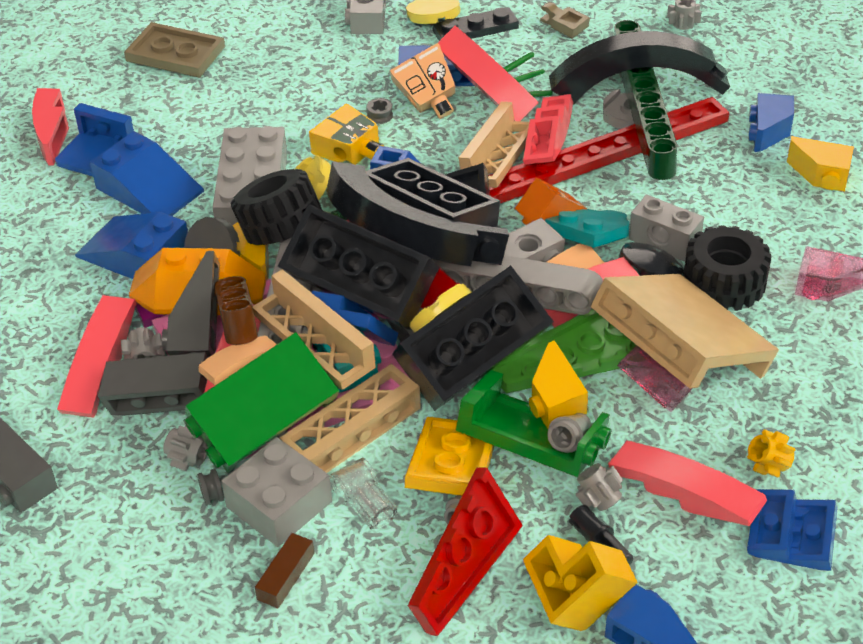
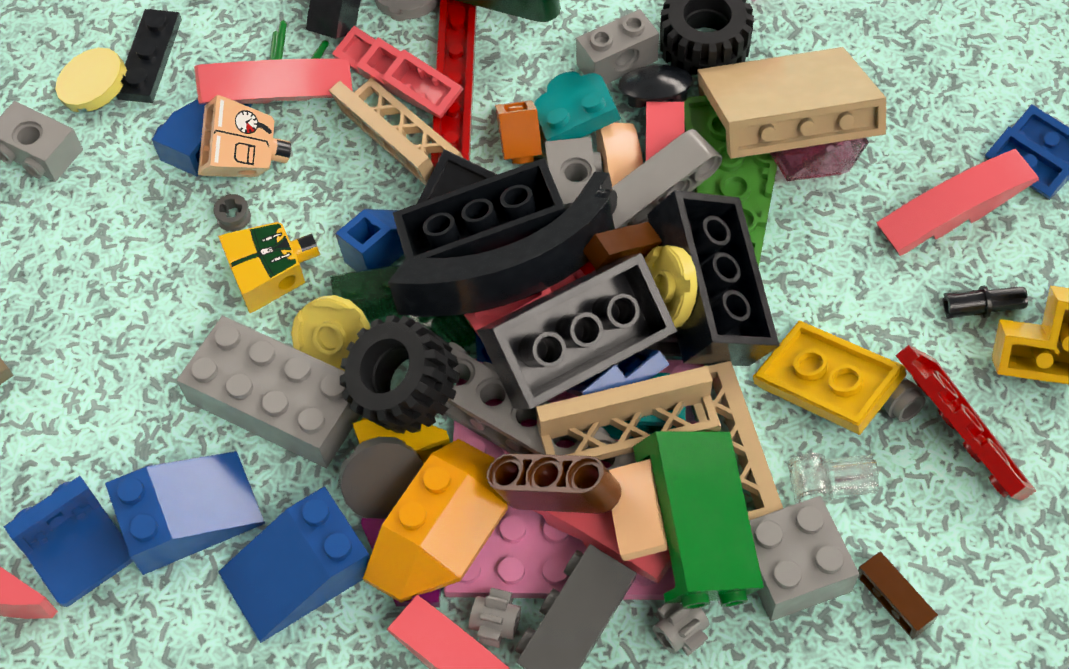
camera: 60 degrees left, 15 degrees up
(194, 317) = (517, 534): dark grey slope -> none
(210, 487) = (748, 624): dark grey bush -> none
(453, 266) = (621, 242): none -> reddish brown piece
(513, 427) = (838, 288): green panel -> none
(556, 387) = (798, 242): yellow slope -> none
(567, 431) = (862, 260): light grey cone -> none
(599, 487) = (931, 271): light grey gear -> none
(771, 453) = (955, 110): yellow gear -> none

